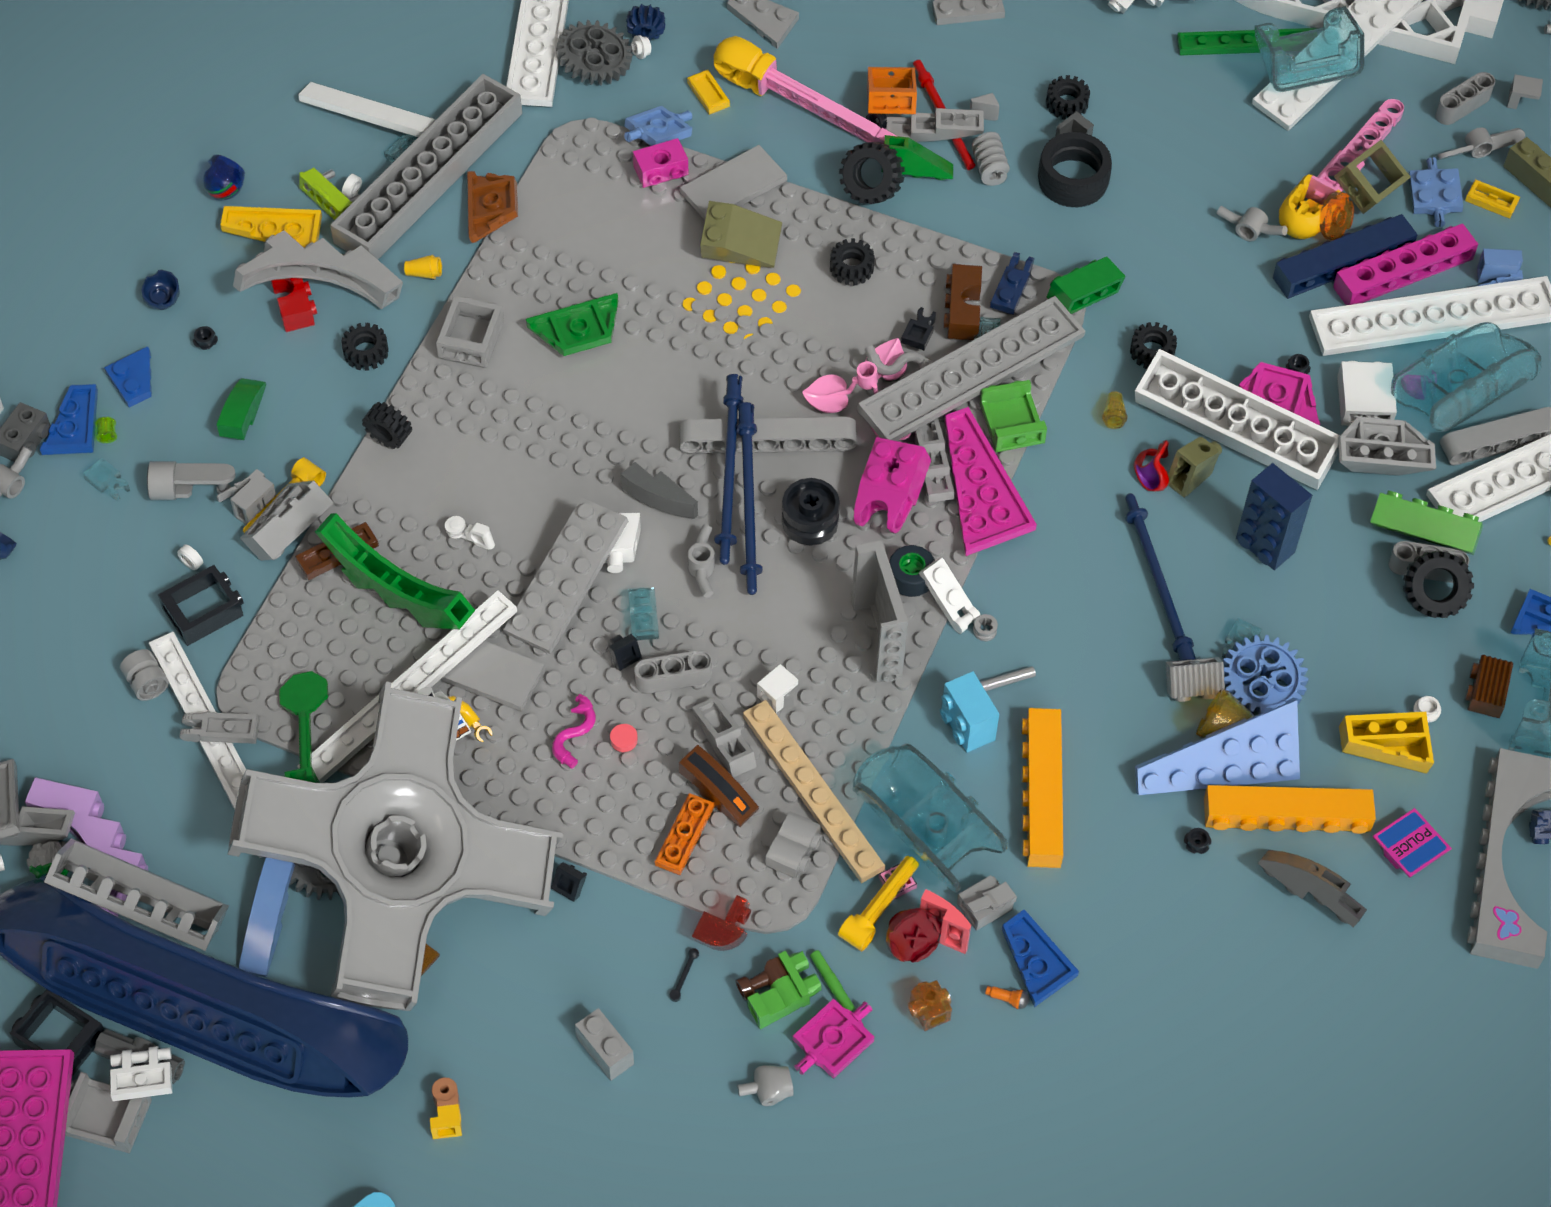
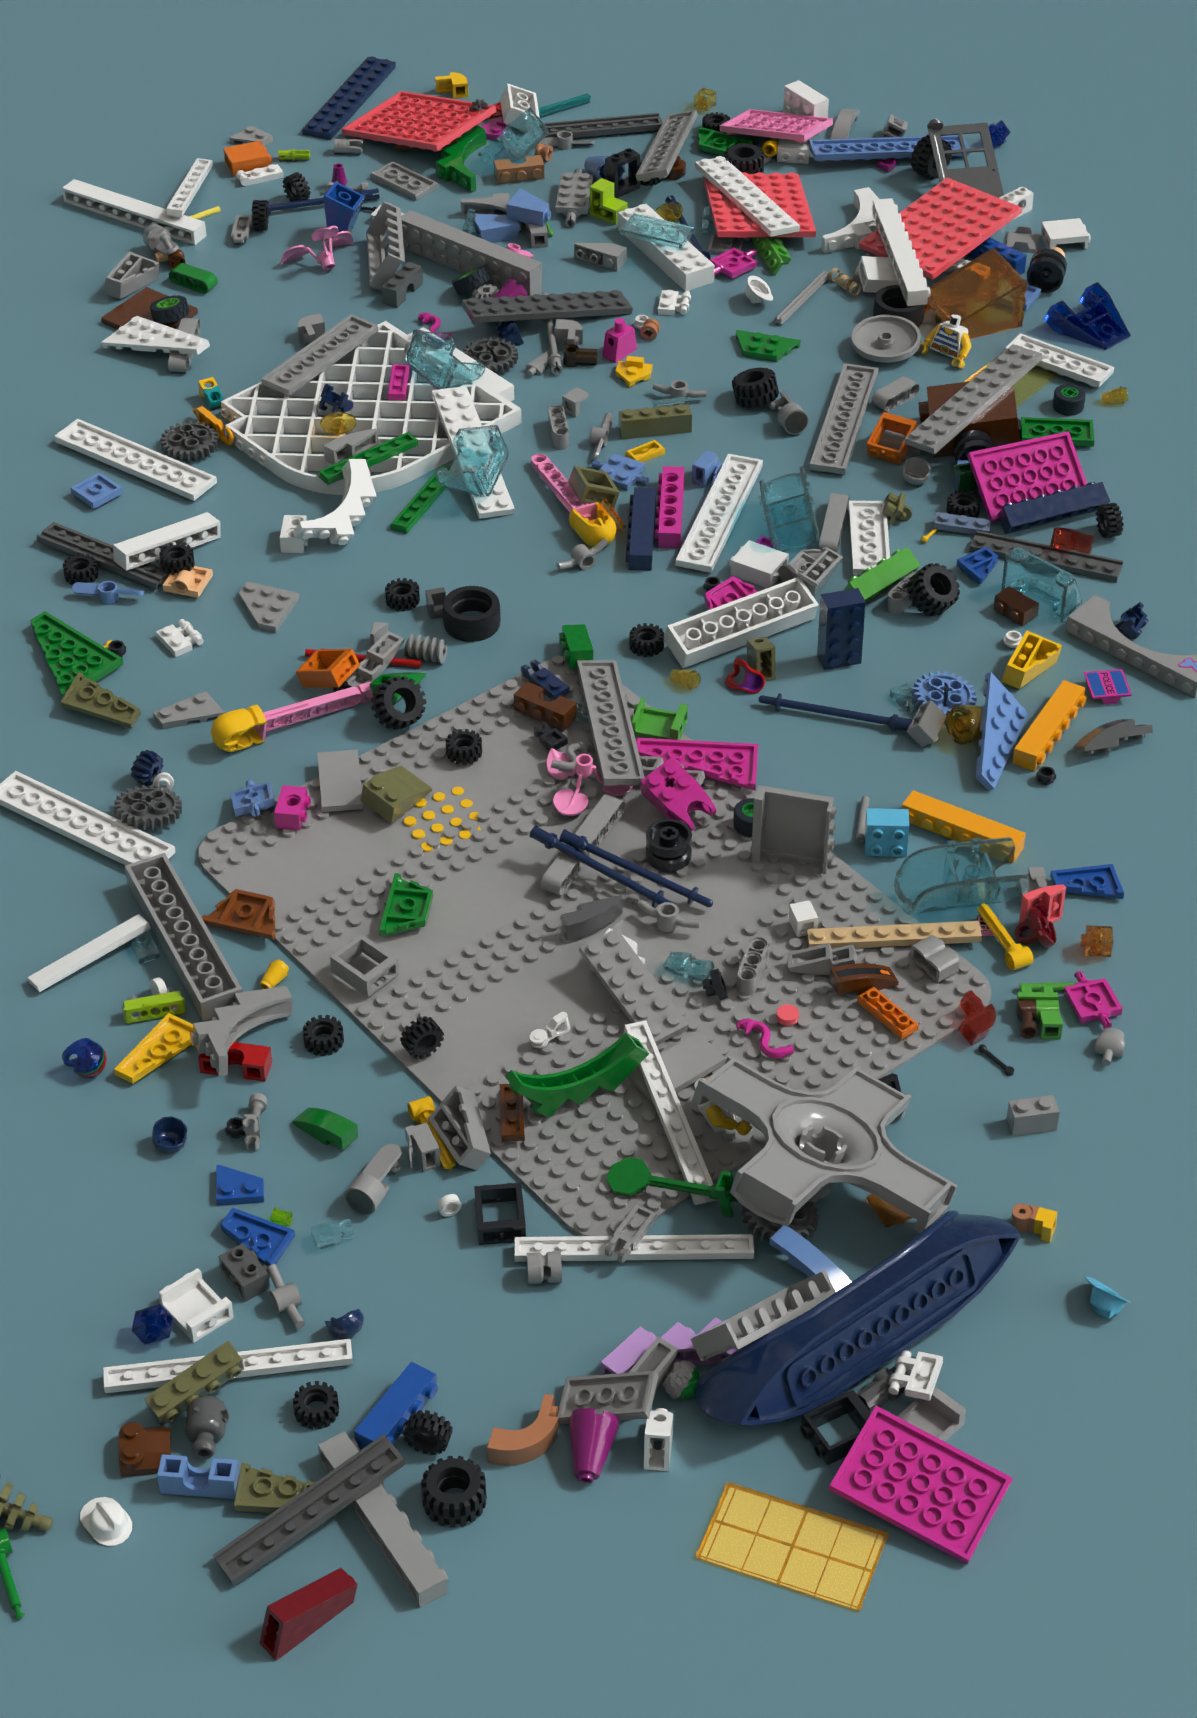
camera: 60 degrees left, 15 degrees down
(202, 348) = (251, 1122): none -> light grey bar
(708, 92) = (236, 766): yellow tile -> none
(1018, 999) = (1112, 903): orange piece -> none

